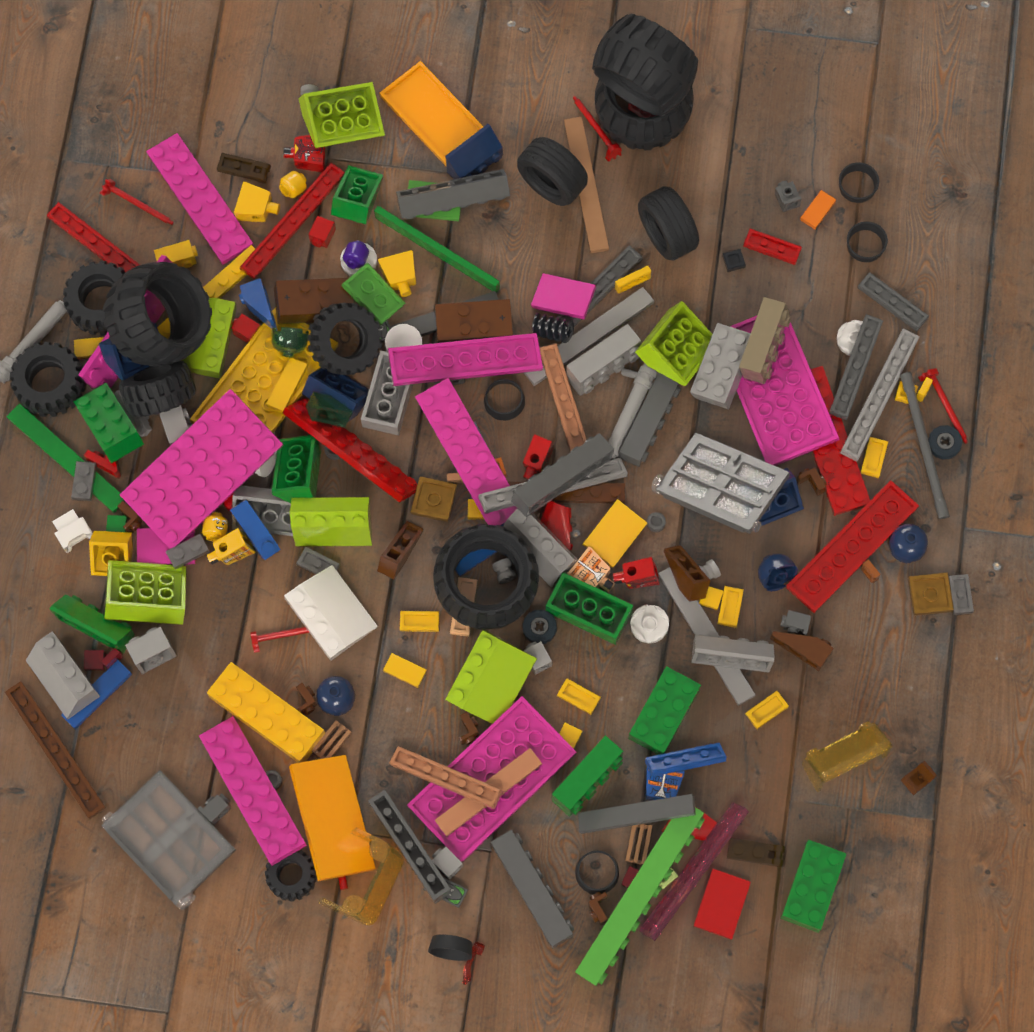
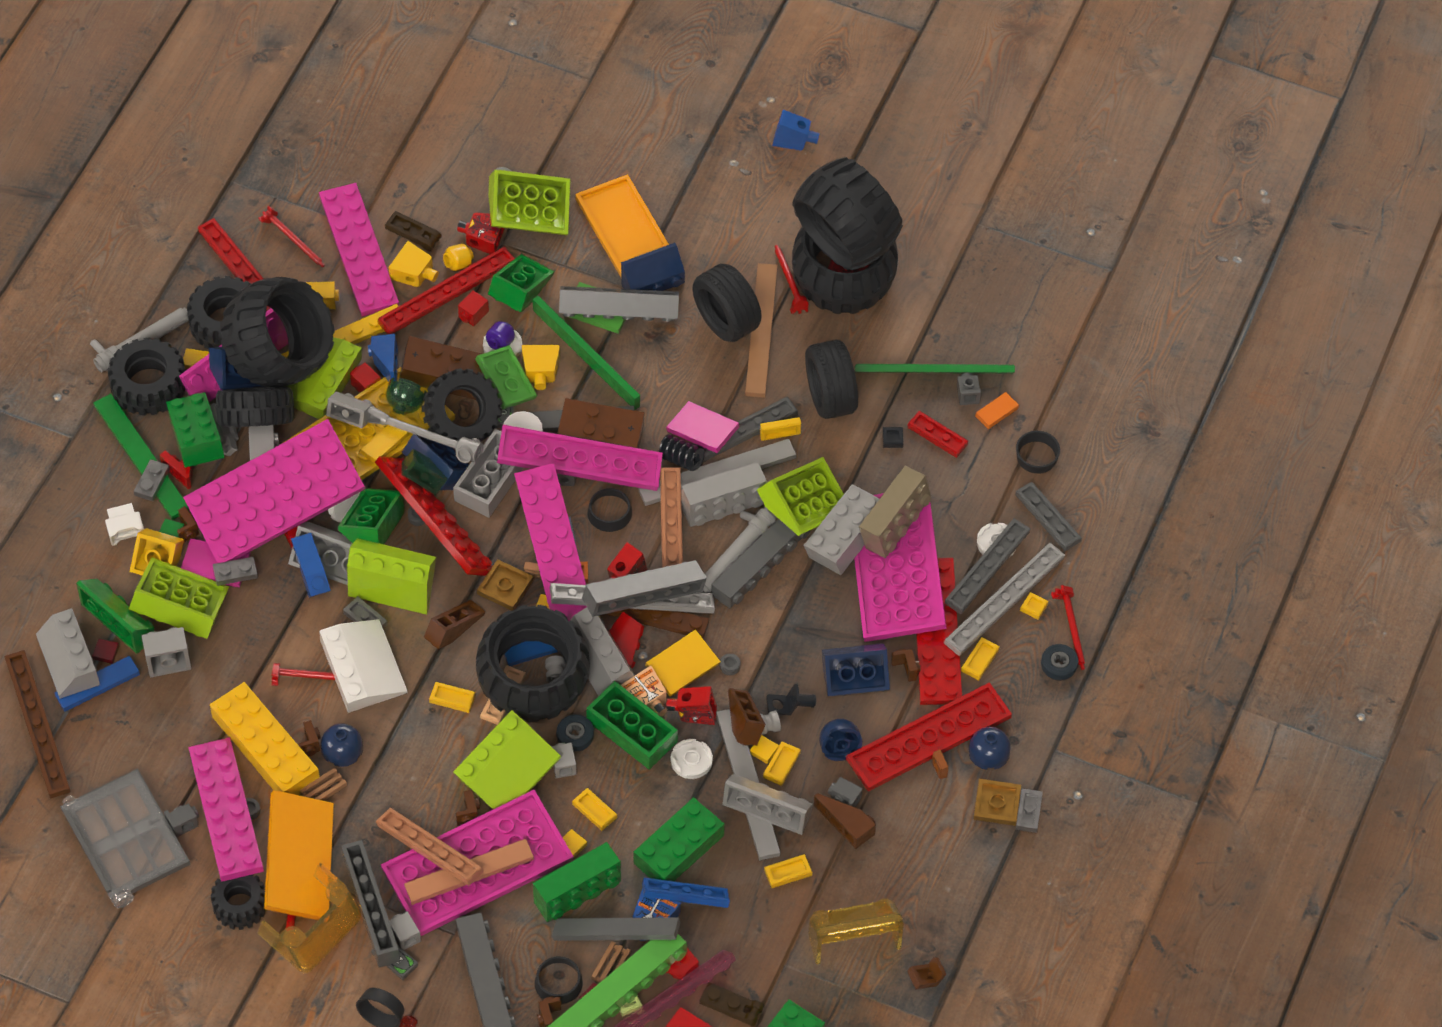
camera: 10 degrees right, 15 degrees down
(111, 658) = (123, 651): dark red tile -> none
(214, 527) = (270, 555): yellow head -> none
(231, 548) = (281, 578): yellow torso -> none
(253, 367) = (360, 413): none -> light grey bar
(404, 670) = (421, 739): yellow tile -> none
(721, 483) = (807, 639): door -> none
(721, 545) = (791, 701): none -> black bracket
(753, 183) = (935, 368): none -> green tile
(862, 167) = (1051, 379): black tyre -> none
(924, 389) = (1053, 605): yellow tile -> none
(940, 502) = (1037, 599): dark grey piece -> none

